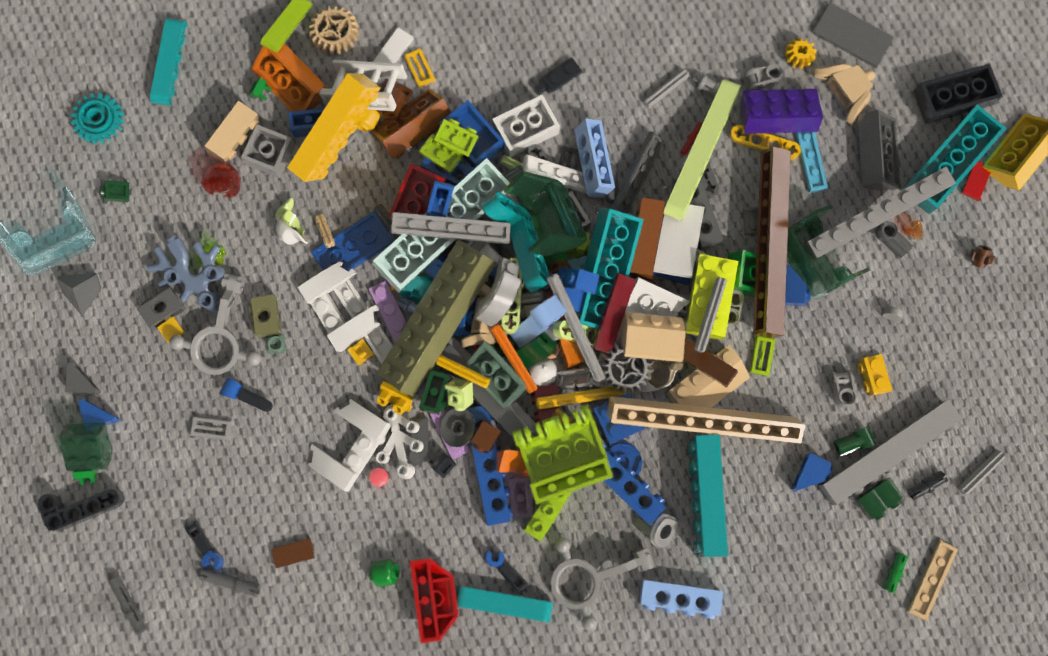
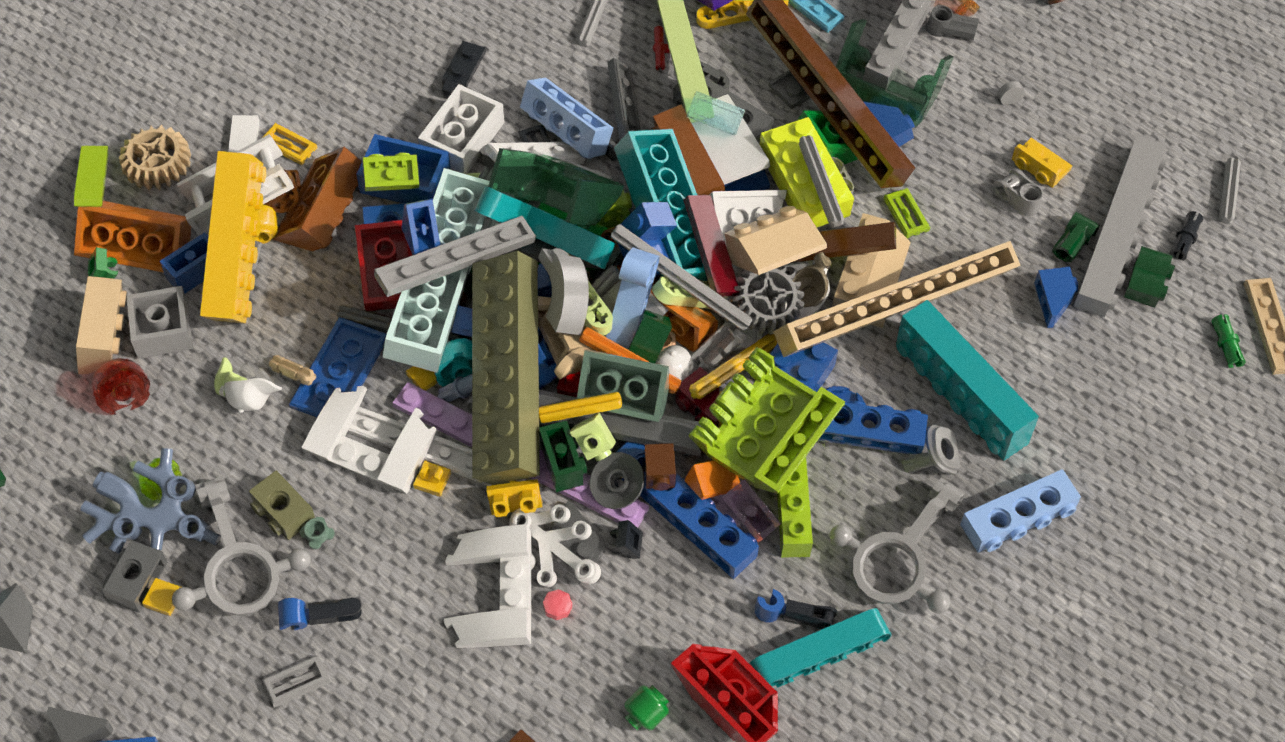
camera: 30 degrees left, 20 degrees down
(441, 155) = (381, 204): lime bracket -> none
(681, 222) = (715, 113): none -> clear light blue tile

